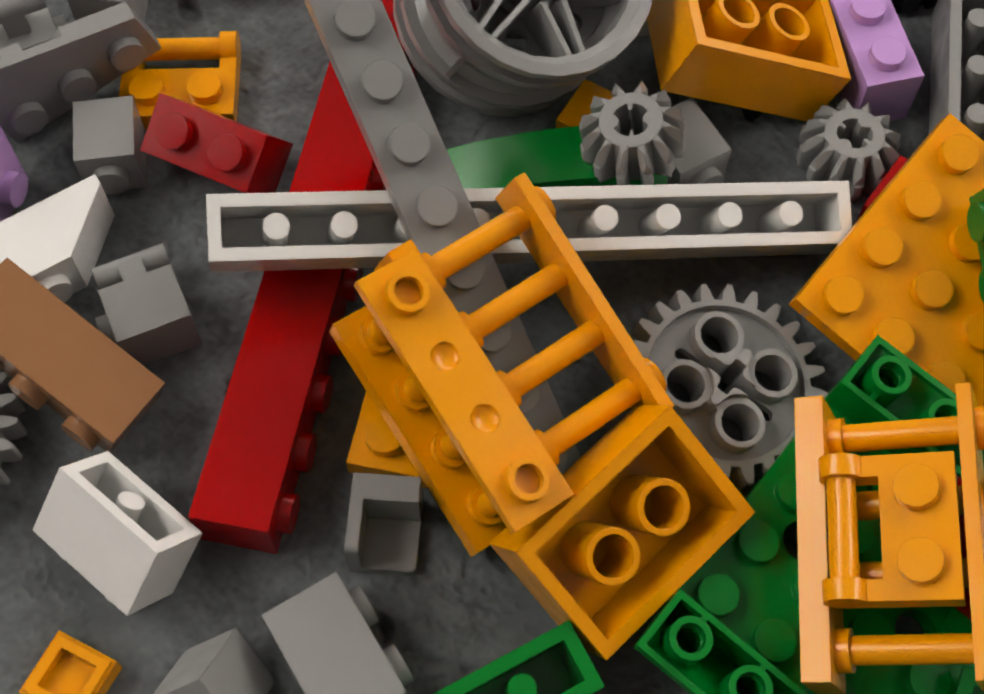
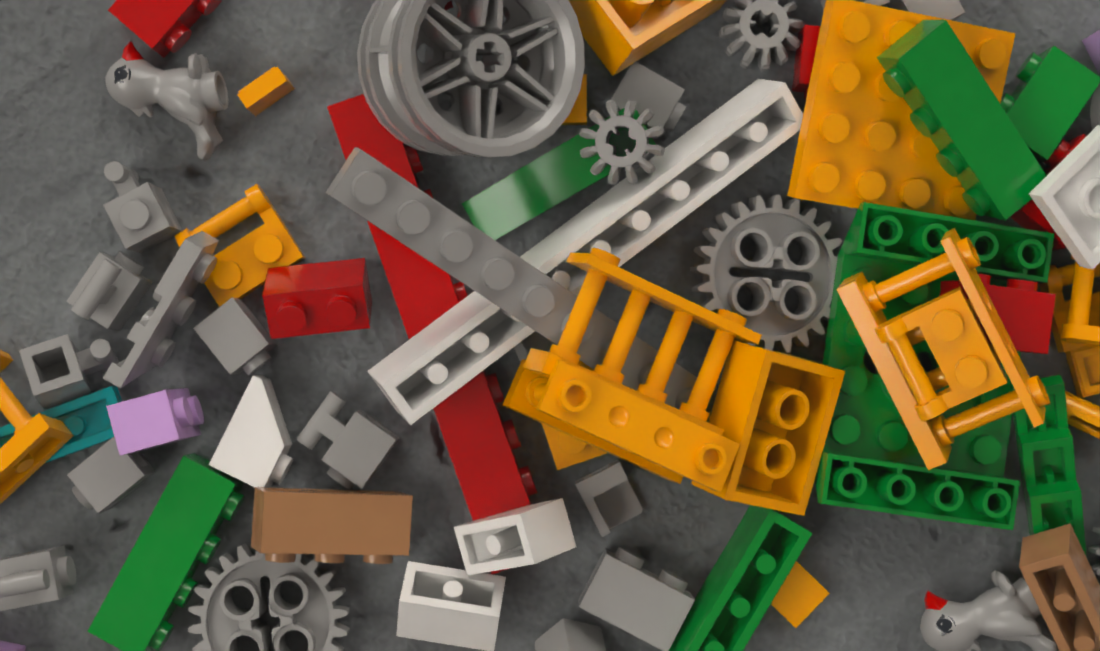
camera: 35 degrees left, 25 degrees up
(244, 474) = (515, 537): none -> white slope

